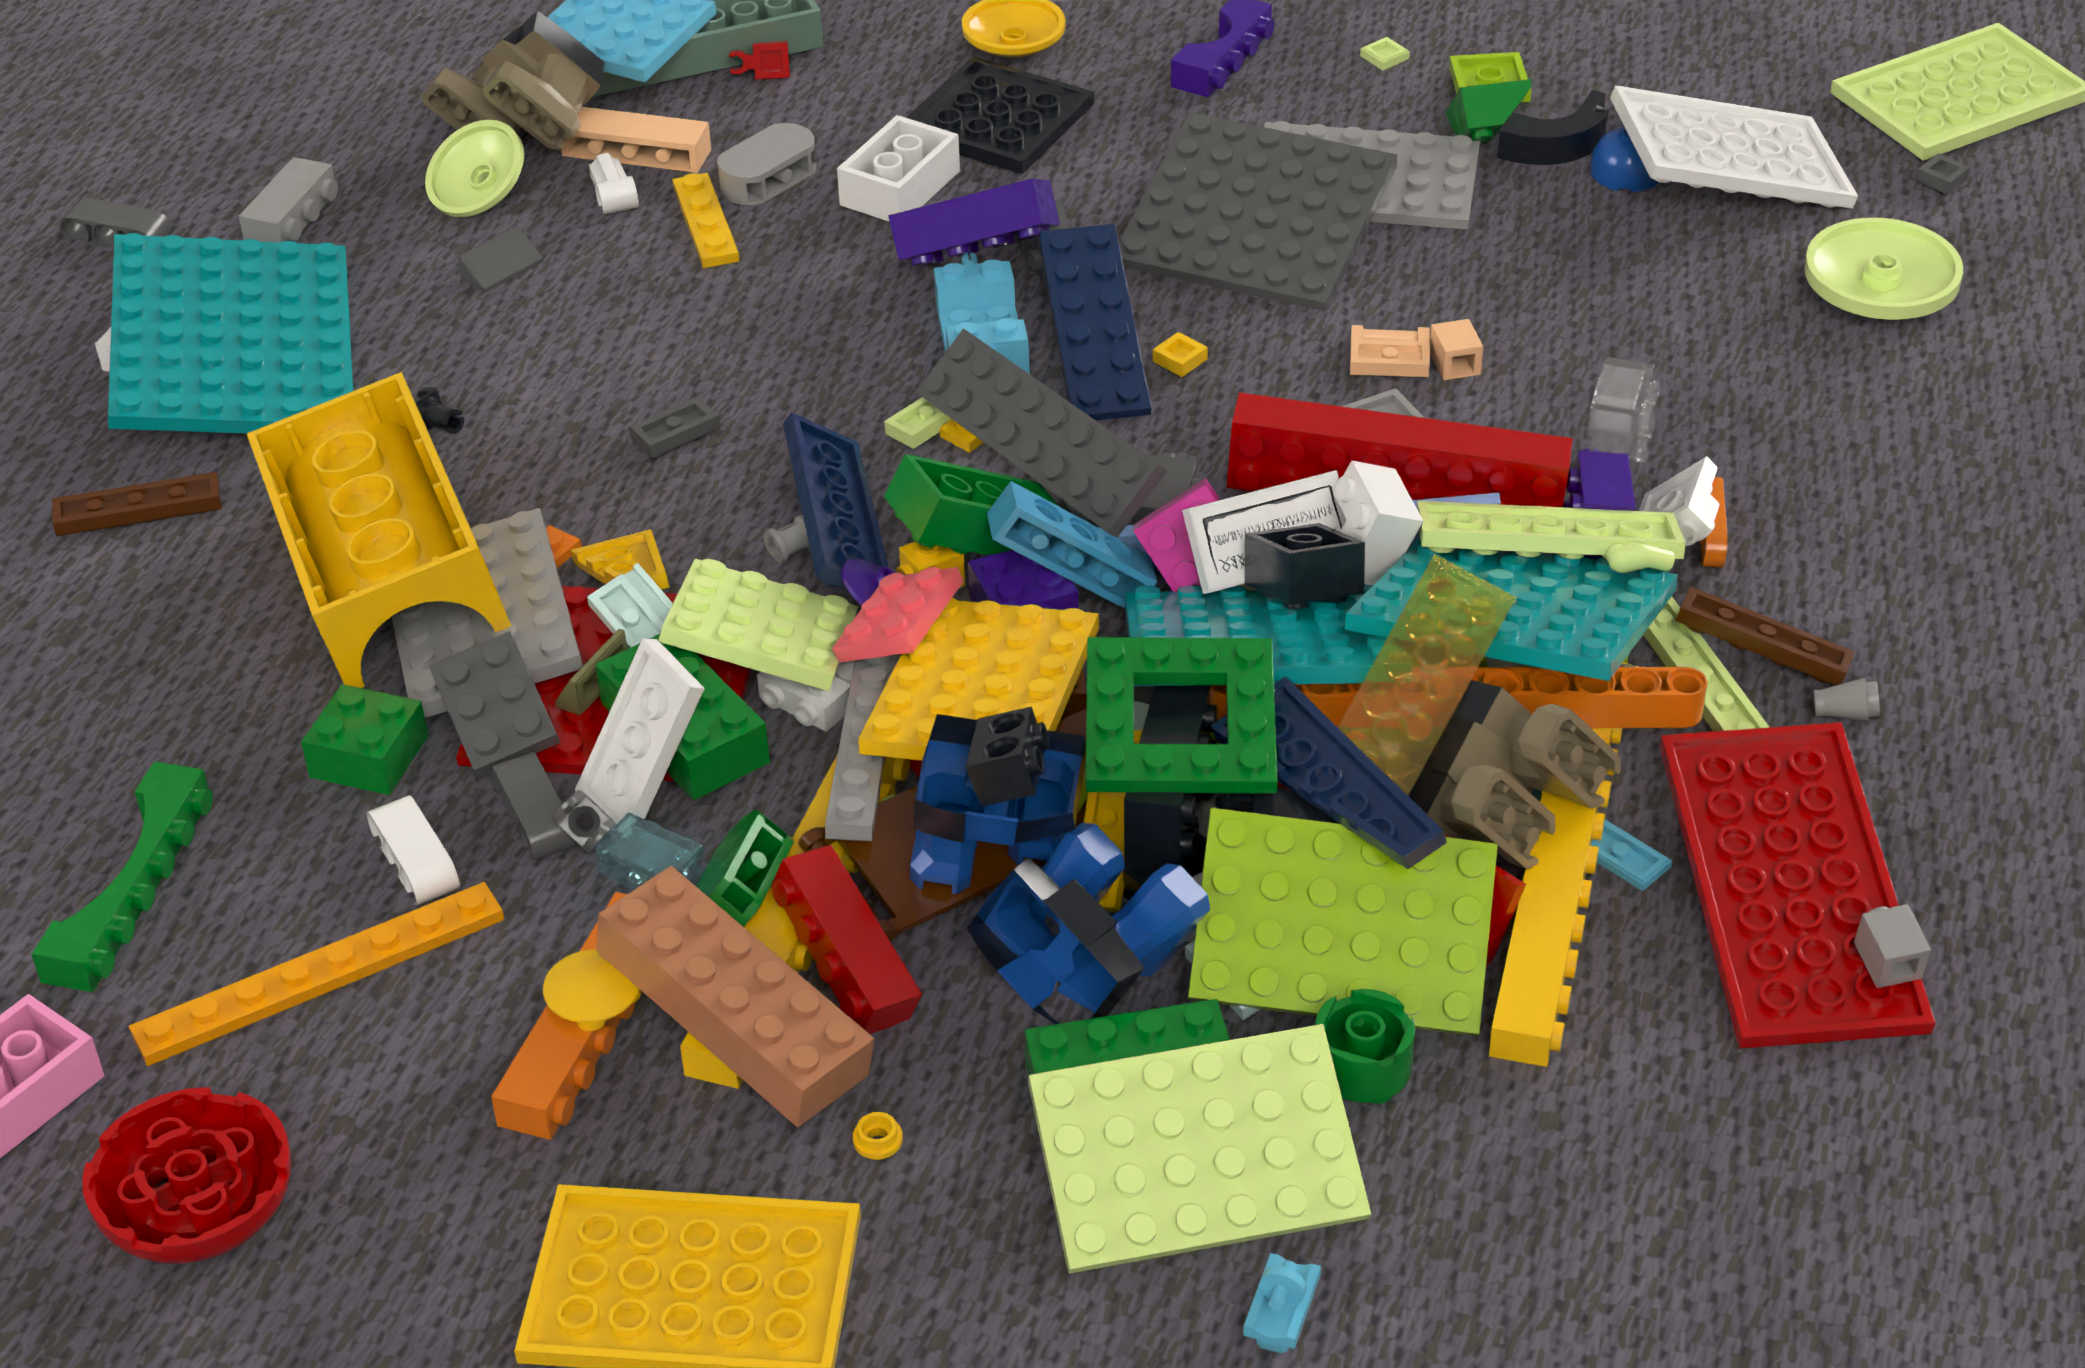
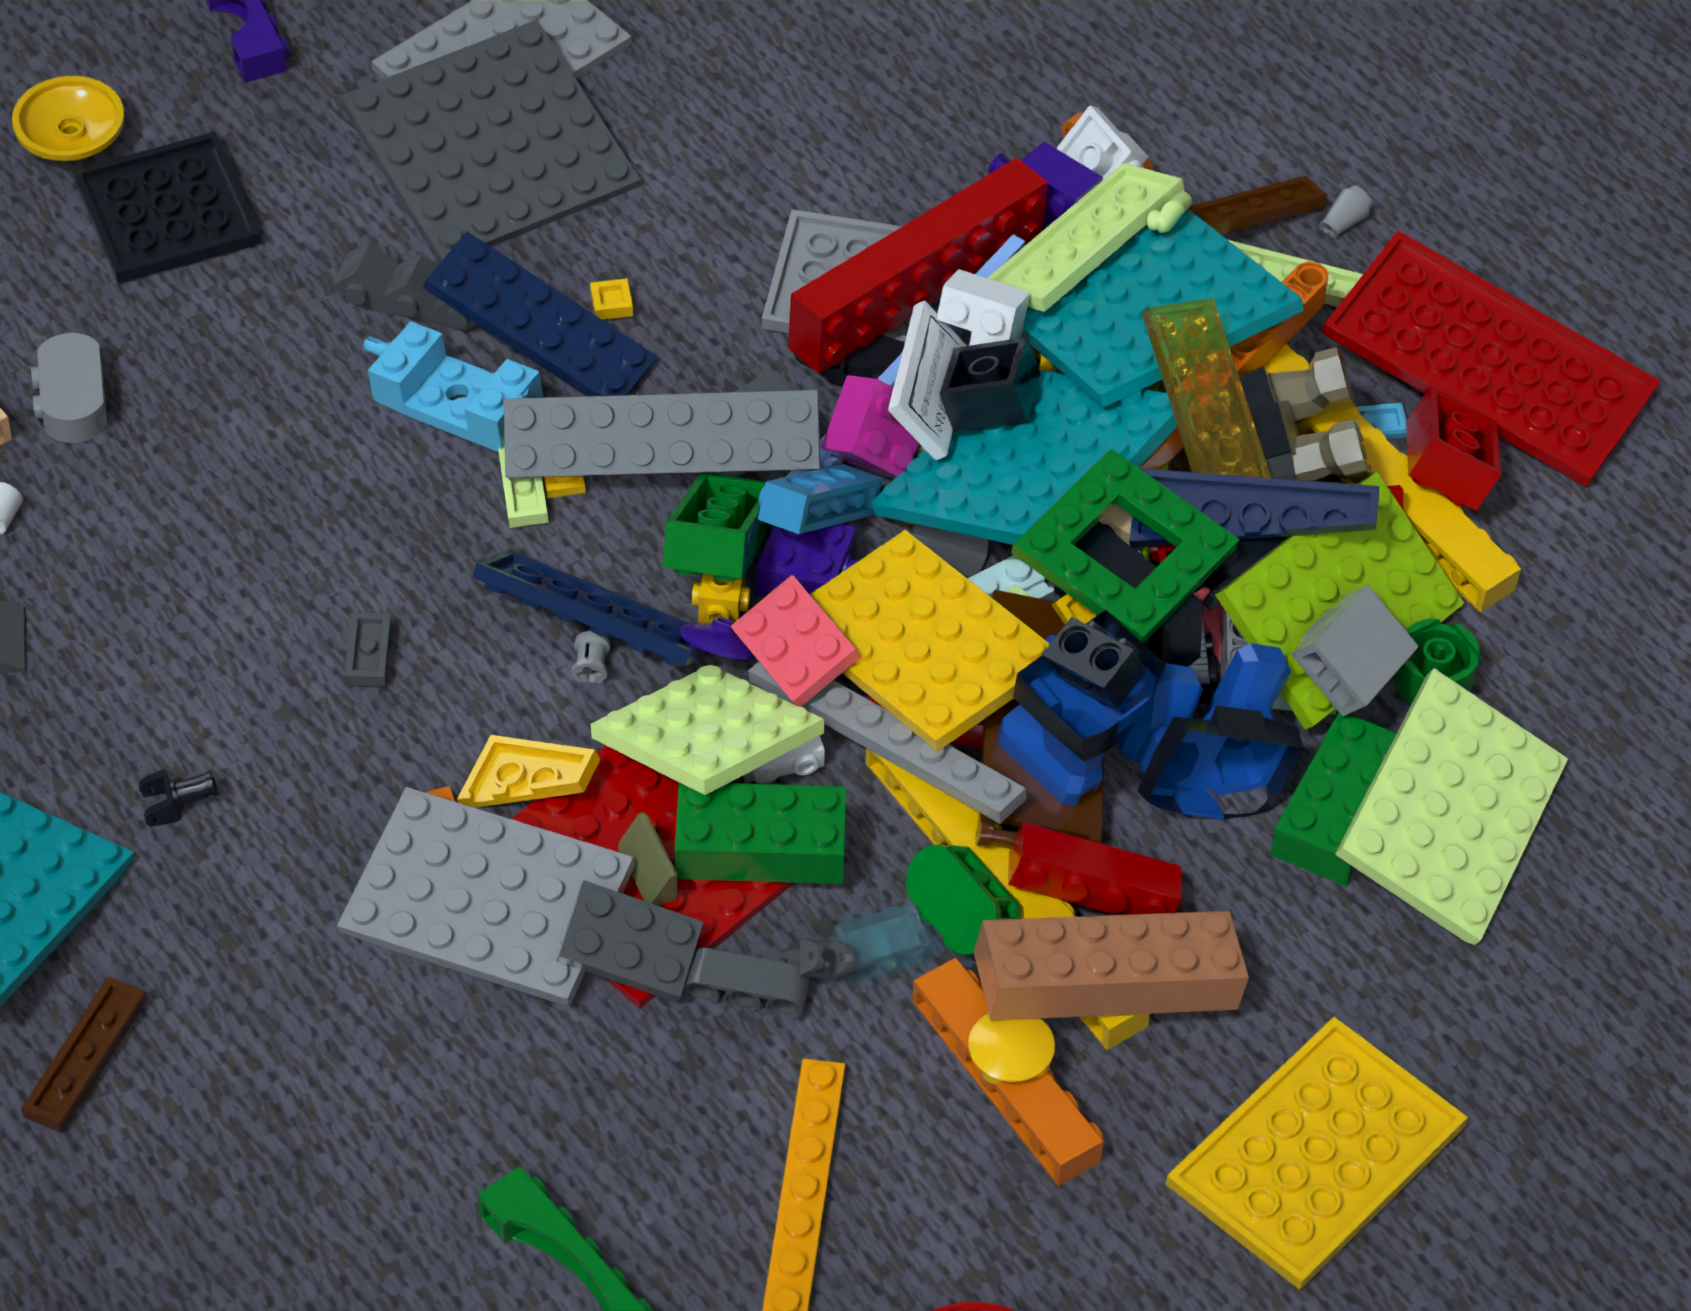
camera: 55 degrees left, 10 degrees up
(365, 739) = (572, 1047): green brick -> none
(370, 517) = (353, 897): yellow piece -> none
(414, 848) = (725, 1081): white beam -> none
(631, 604) = (618, 793): light aqua plate -> none
(640, 733) = (788, 868): white plate -> none
(705, 220) = (94, 472): yellow plate -> none
(877, 1125) = (1274, 963): yellow plate -> none
(898, 168) = (190, 312): white brick -> none
(973, 220) = (350, 308): dark purple brick -> none
(1270, 949) = (1354, 650): none -> light grey brick
(1281, 1303) = (1610, 847): medium azure hips -> none
(1390, 352) = (740, 191): light nougat plate -> none
(1456, 349) = (780, 147): light nougat brick -> none
(1623, 409) = (966, 115): clear brick -> none
(1625, 901) = (1453, 449): none -> red brick
(1892, 945) = (1600, 351): light grey brick -> none

